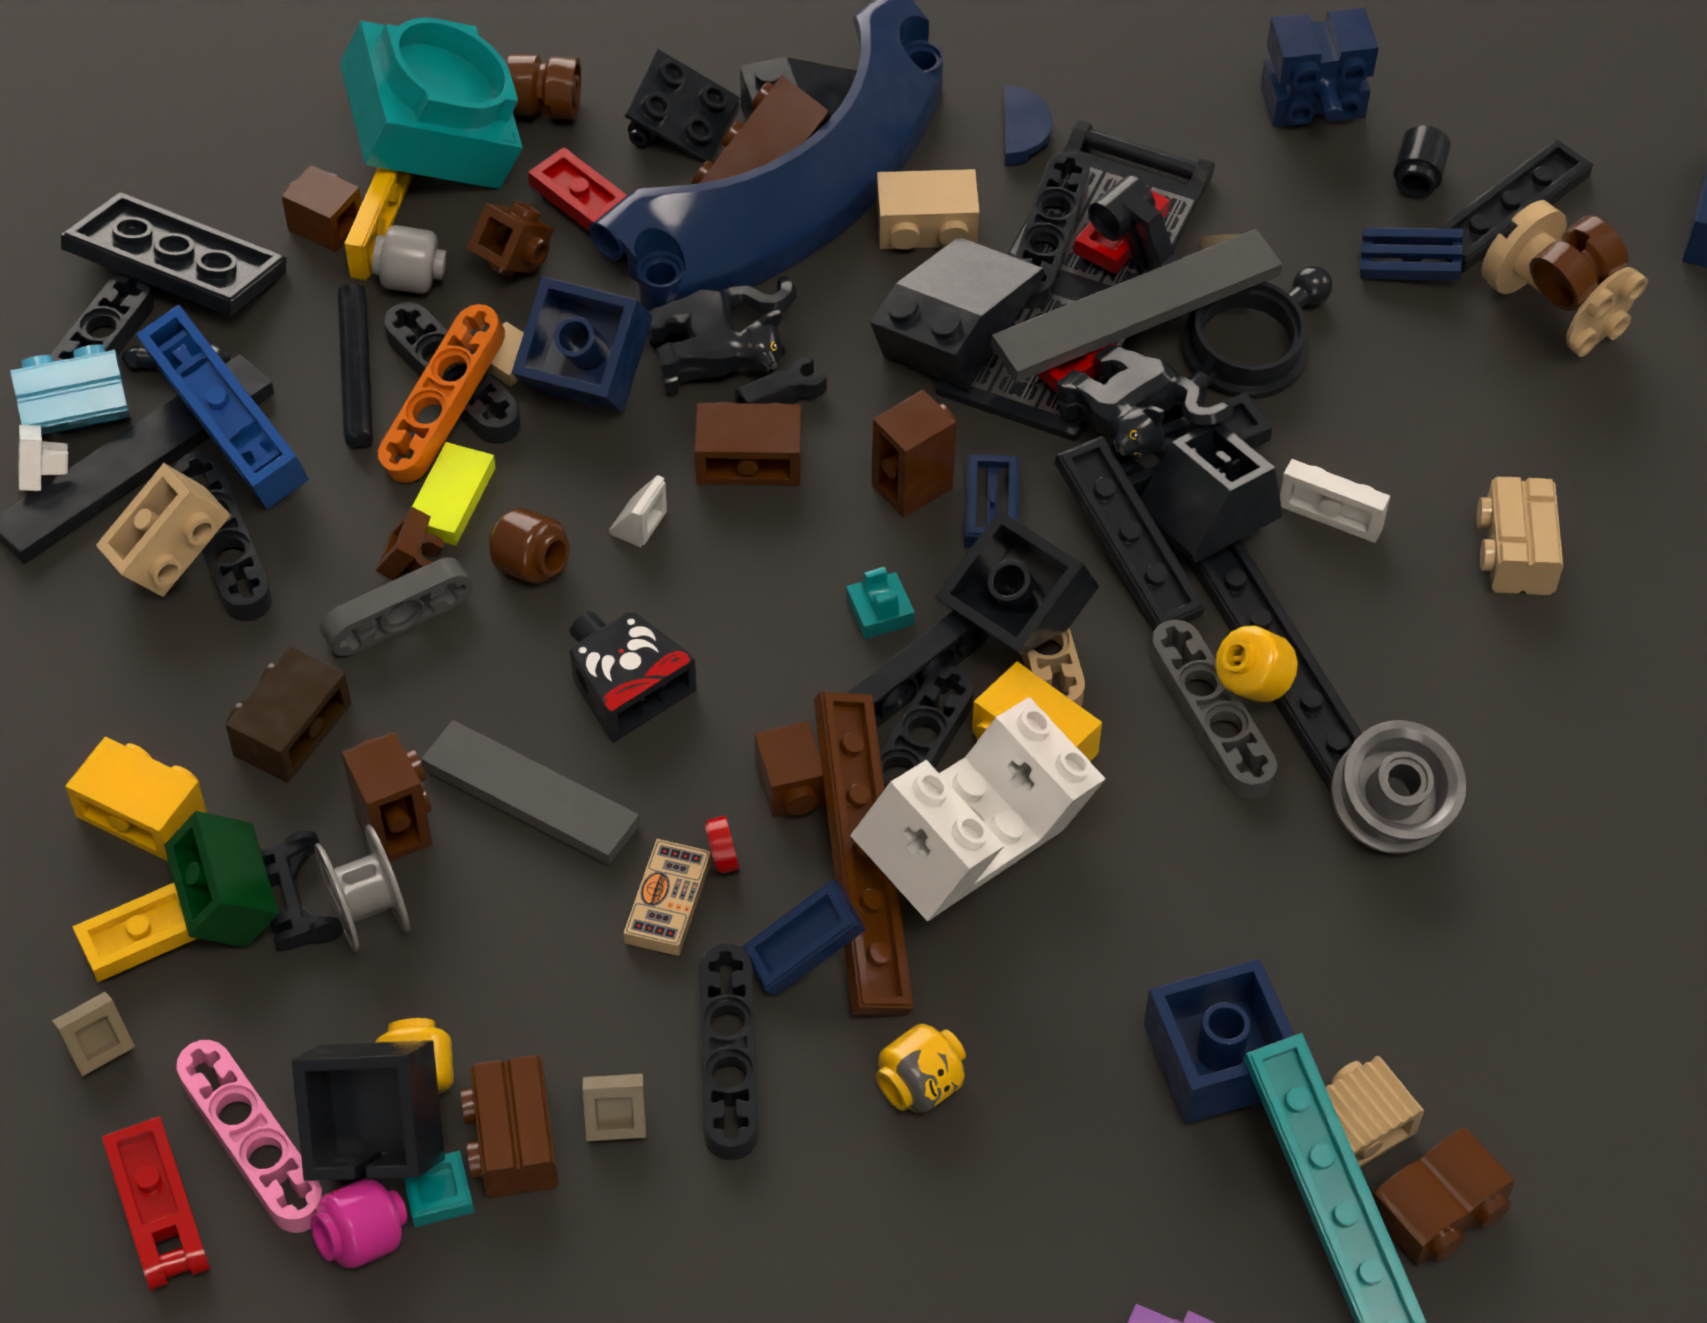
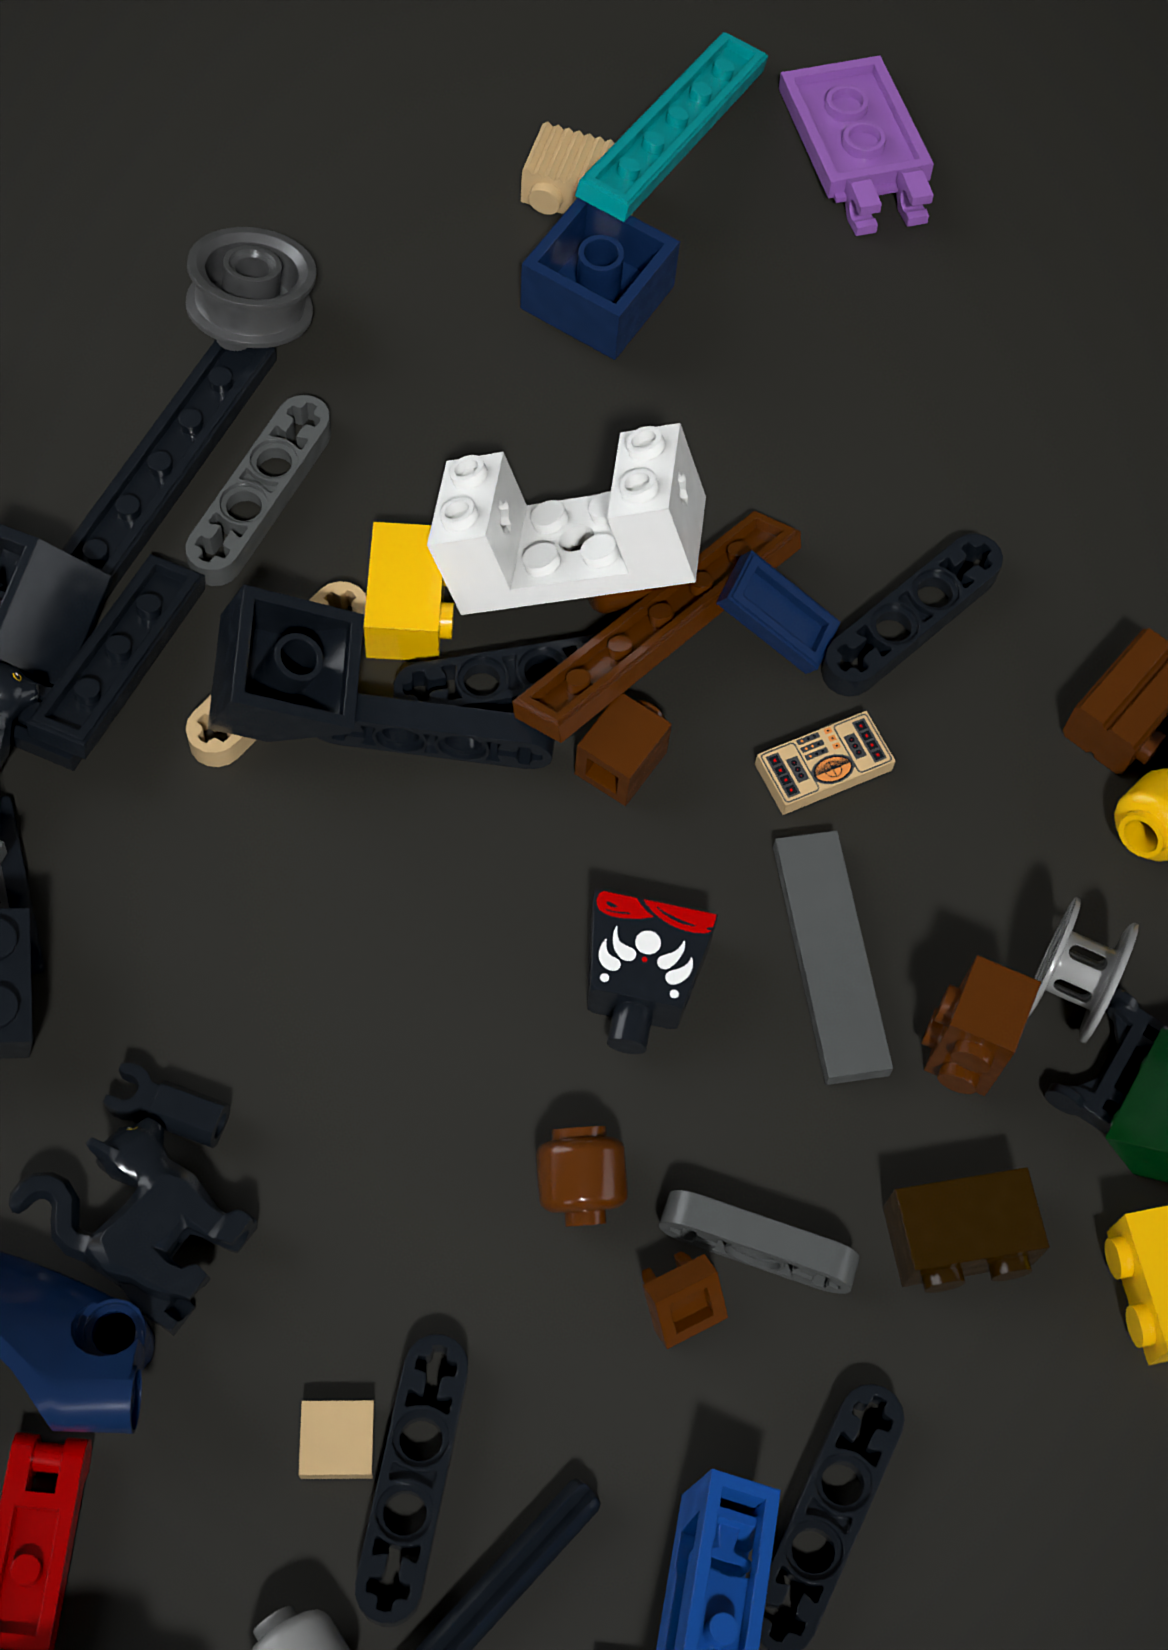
camera: 135 degrees left, 10 degrees up
(163, 530) = (911, 1536): tan brick -> none
(435, 391) = (471, 1440): orange beam -> none
(454, 490) = (571, 1330): neon yellow tile -> none
(511, 238) = (181, 1563): reddish brown brick -> none
(582, 344) = (292, 1319): dark blue brick -> none
(614, 1107) = (1034, 636): dark tan tile -> none
(642, 513) = (444, 1113): white slope -> none
(722, 845) = (745, 747): red tile -> none
(748, 444) = (273, 1070): reddish brown brick -> none
(879, 603) = (367, 820): teal tile -> none
(913, 453) = (179, 877): reddish brown brick -> none
(921, 1068) = (808, 457): yellow head -> none
(991, 462) = (170, 831): dark blue tile -> none
(1256, 664) = (206, 448): yellow head -> none
(1443, 1196) = (589, 94): reddish brown brick -> none

